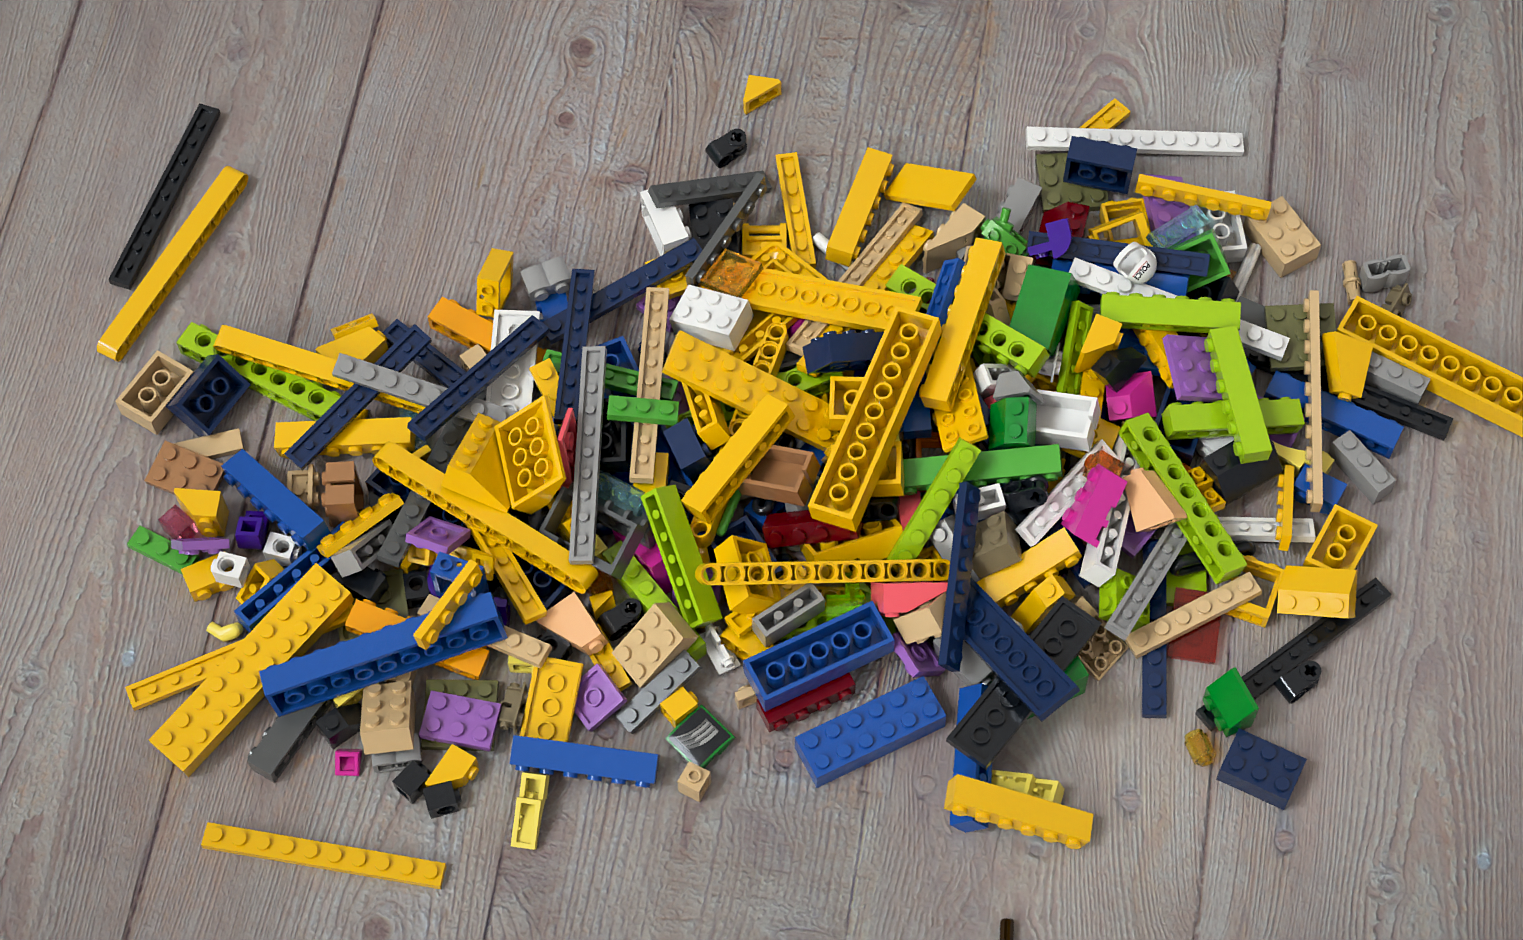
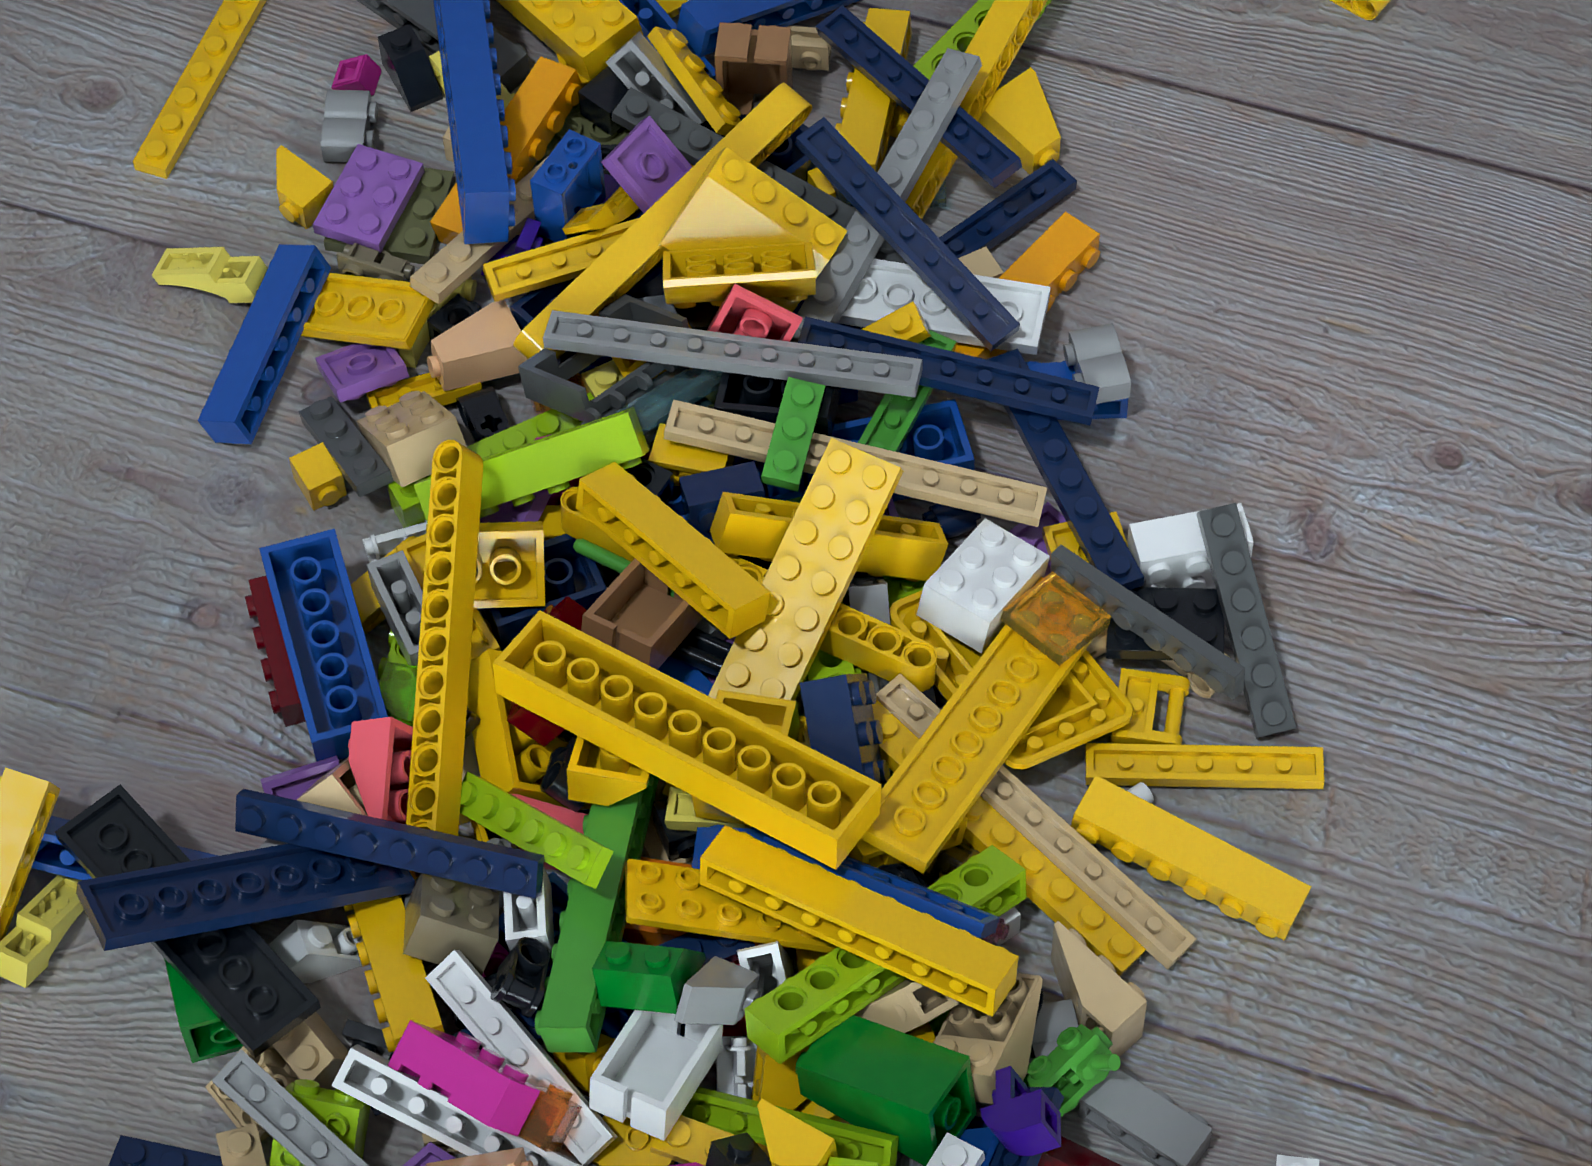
camera: 100 degrees right, 5 degrees down
(353, 326) = (1074, 133): yellow plate -> none
(388, 717) = (389, 105): tan brick -> none
(412, 781) = (297, 136): black brick -> none
(442, 799) = (258, 170): black brick -> none
(448, 604) = (494, 131): yellow plate -> none
(494, 282) = (1113, 280): yellow window -> none
(601, 603) = (513, 398): yellow slope -> none
(694, 781) = (191, 479): tan brick -> none
(700, 737) = (263, 500): slope -> none
(727, 149) = (1347, 678): black piece -> none
(759, 92) = (1461, 738): yellow slope -> none
(870, 731) = (199, 720): blue brick -> none
(930, 186) = (1208, 972): yellow tile -> none
(1041, 601) = (343, 1005): yellow slope -> none
(1052, 365) = (781, 1088): white hinge -> none

